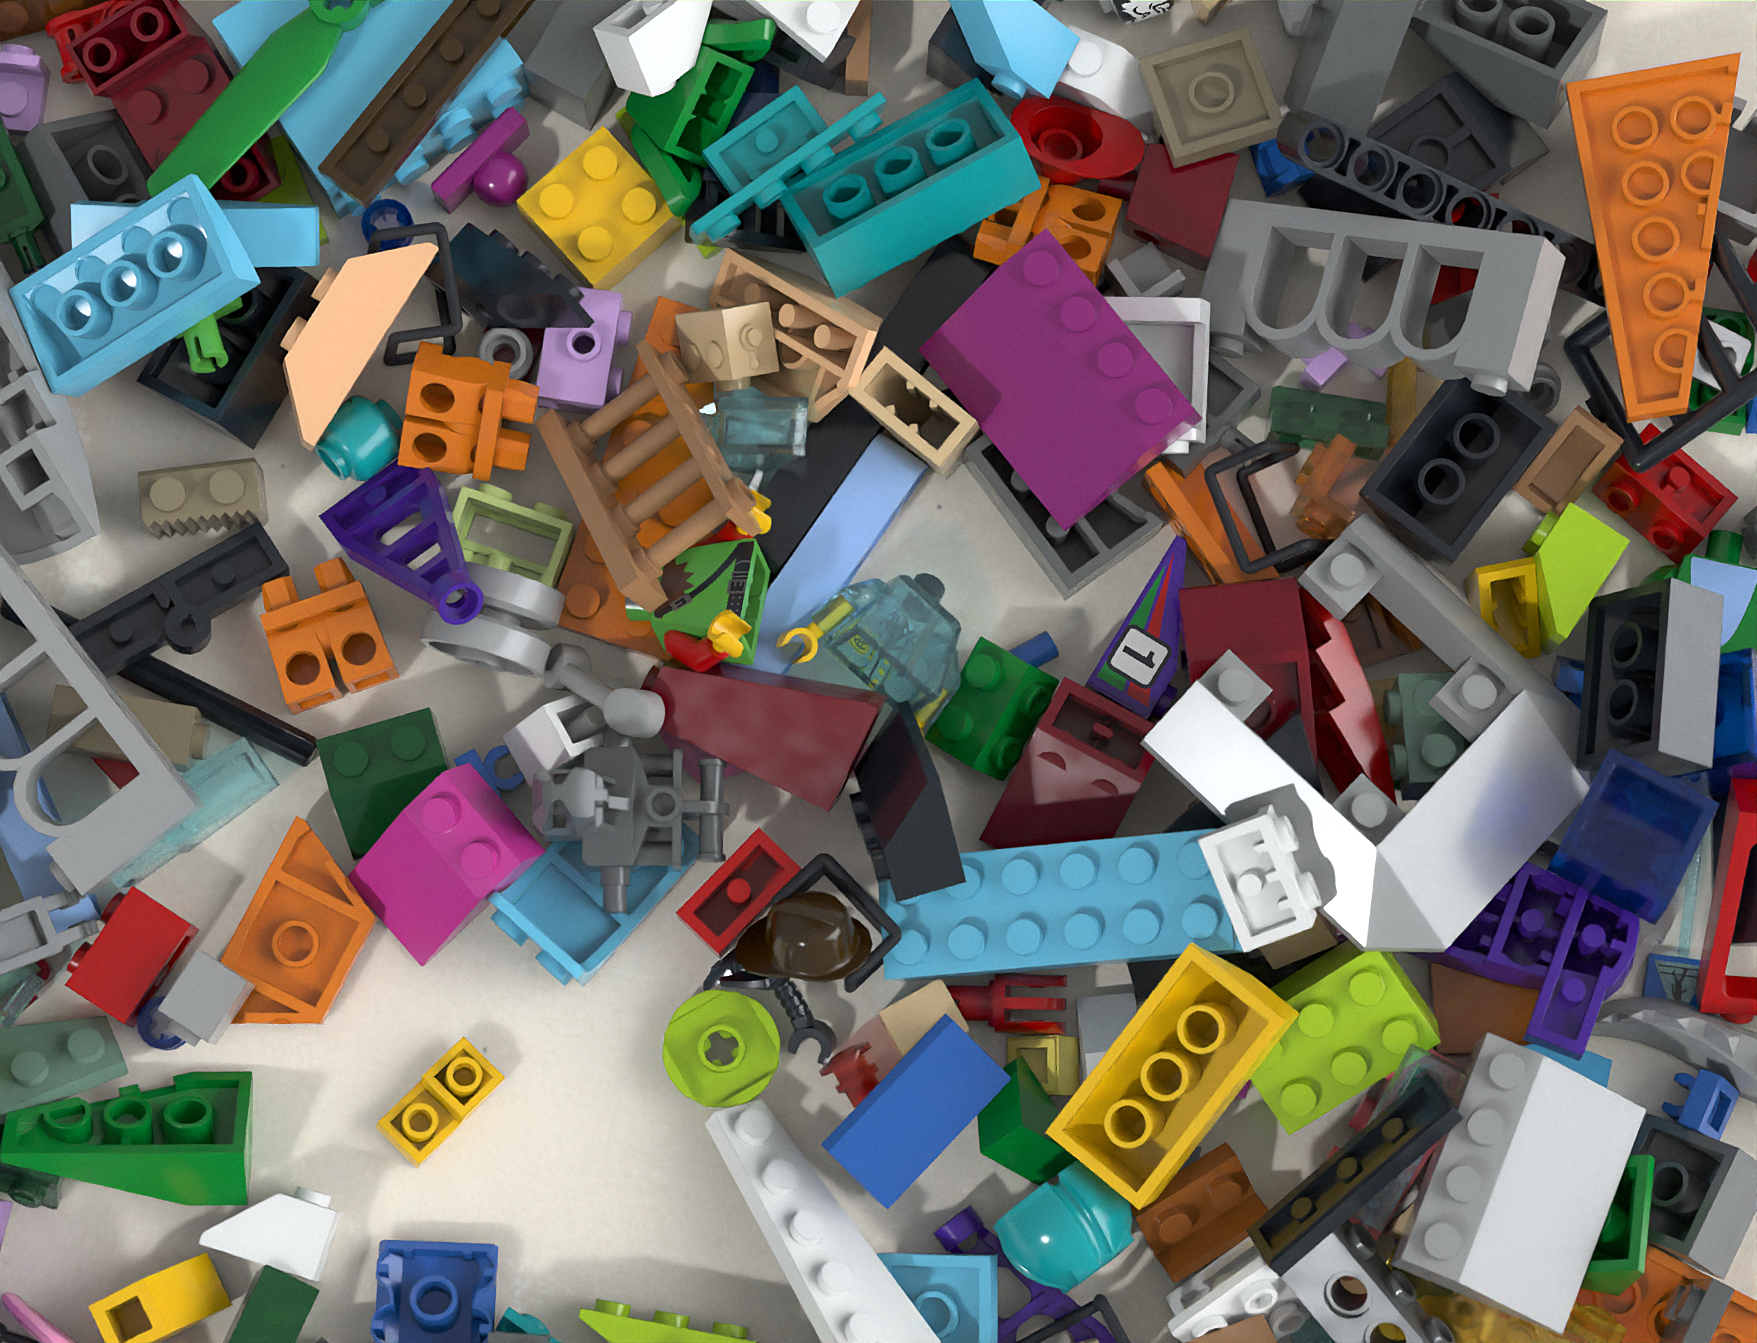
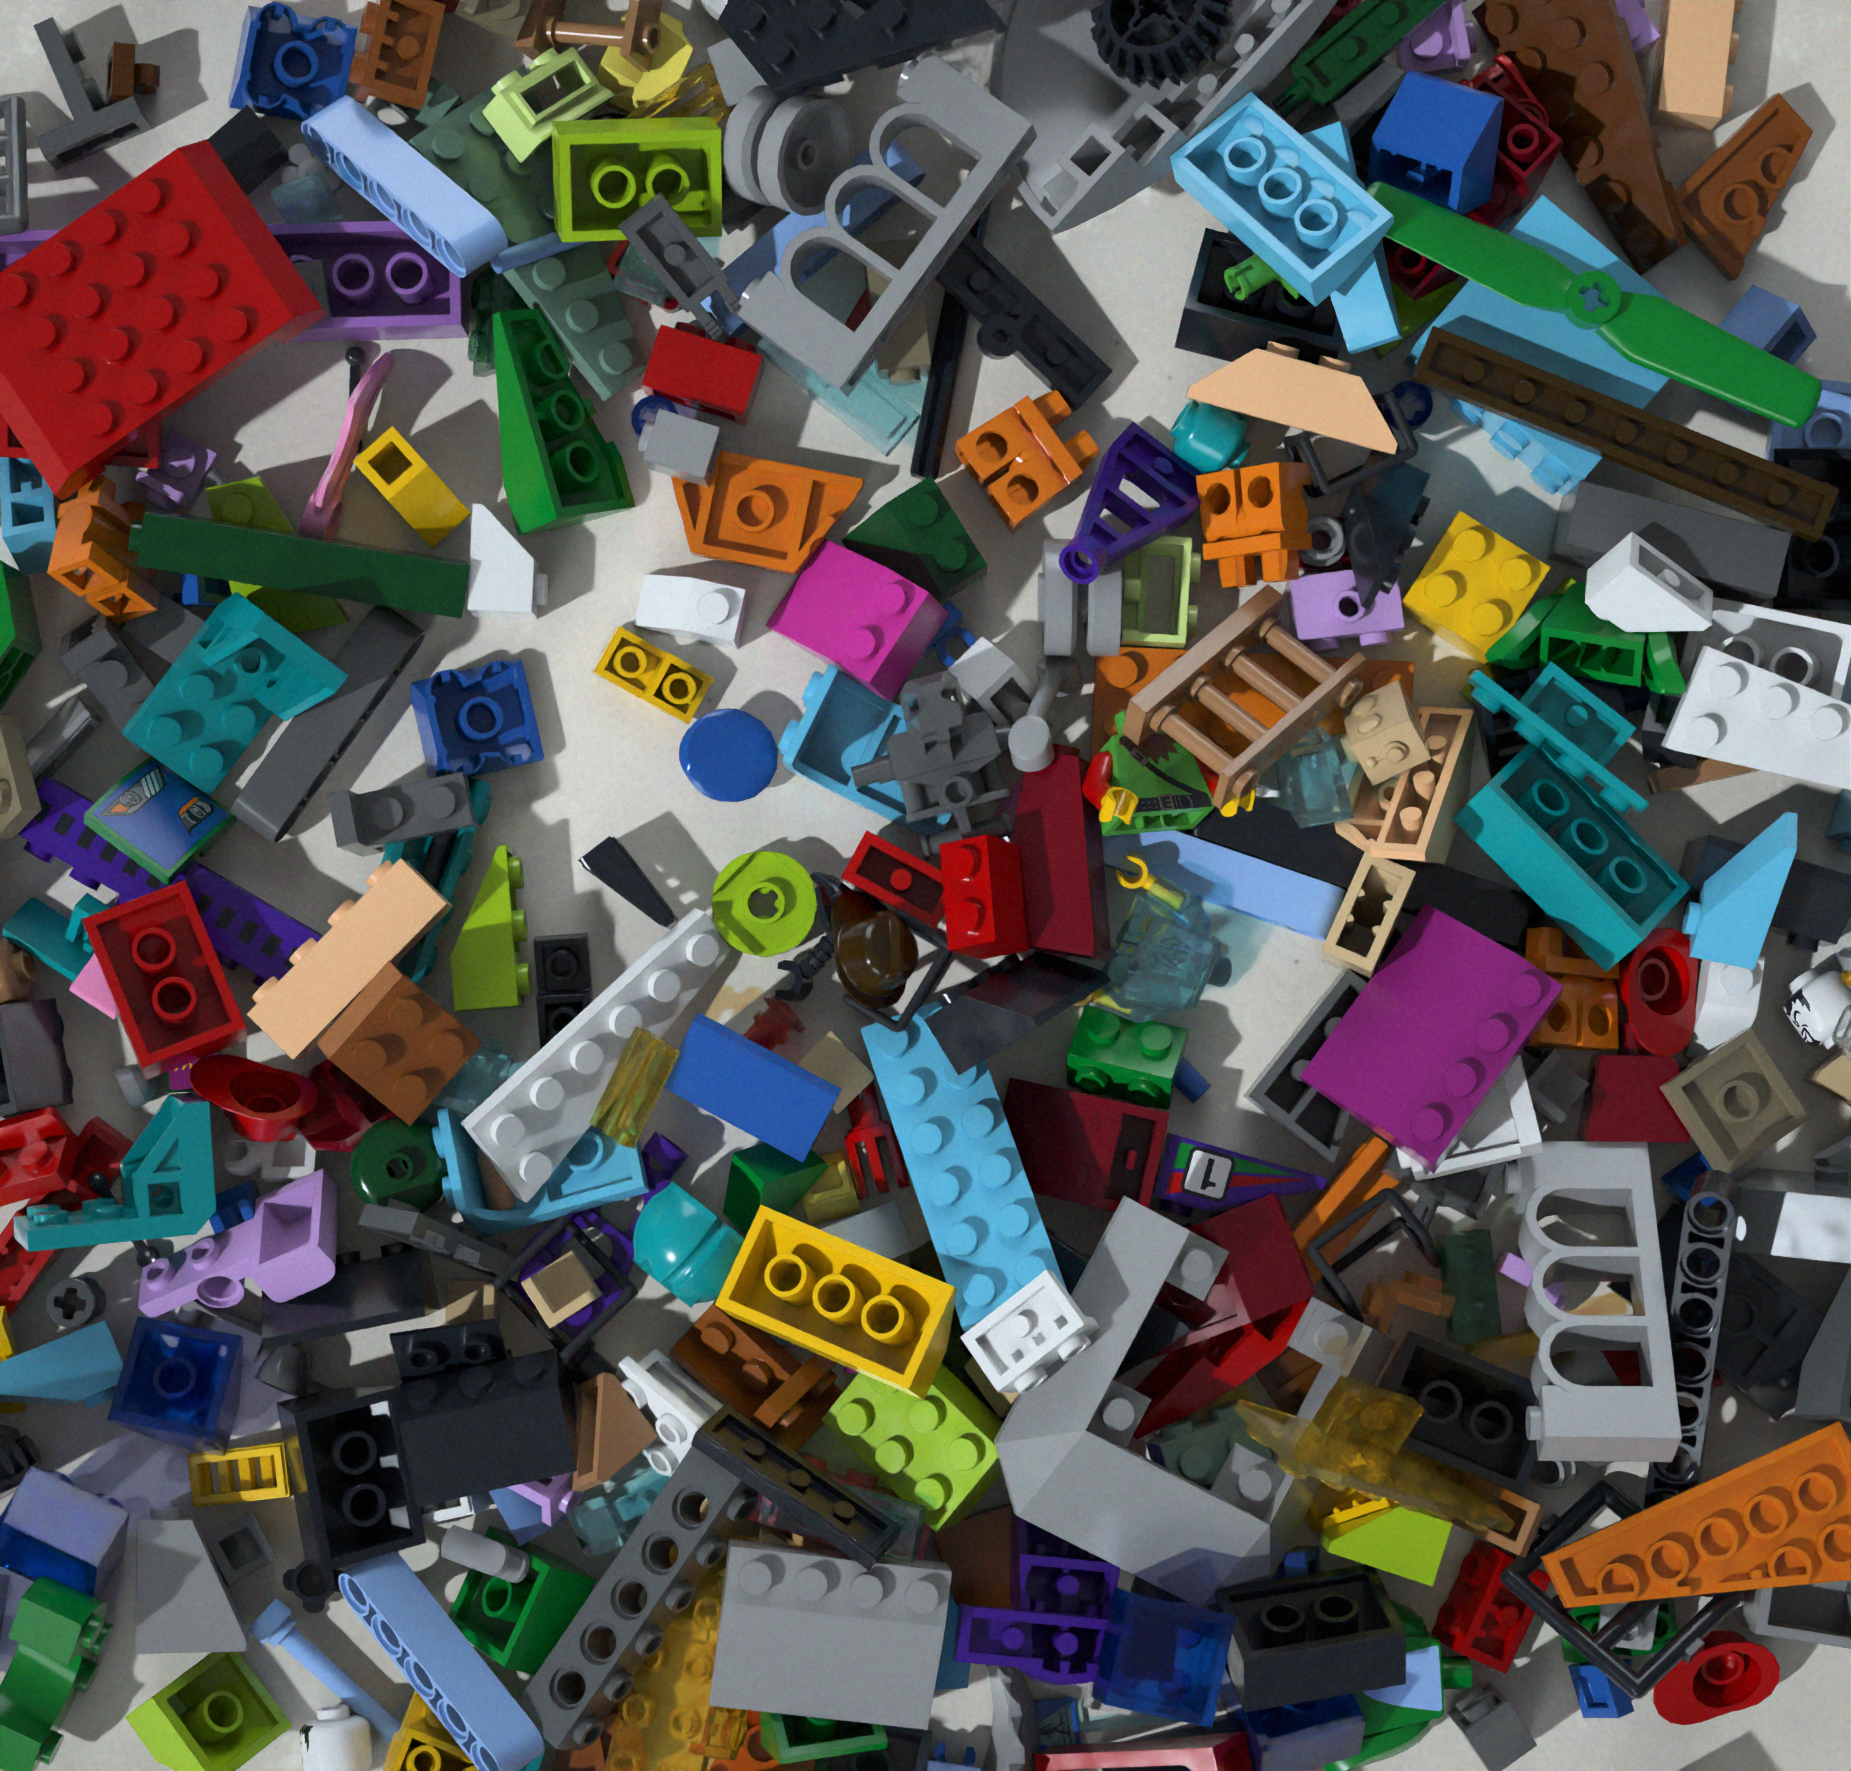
camera: 80 degrees right, 5 degrees up
(123, 111) = (1438, 142): none -> blue slope
(203, 497) = (1119, 316): dark tan brick -> none
(381, 1040) = (692, 609): none -> white slope
(487, 166) = (1486, 477): magenta tile -> none
(551, 1043) = (729, 755): none -> blue piece
(644, 1194) = (620, 872): none -> black slope
(746, 1292) = (562, 981): none -> black slope
(783, 806) = (983, 897): none -> red brick
(876, 1241) = (634, 1087): none -> clear yellow tile
(1265, 1151) = (800, 1403): none -> dark orange bracket
(1465, 575) = (1358, 1445): none -> clear yellow bracket

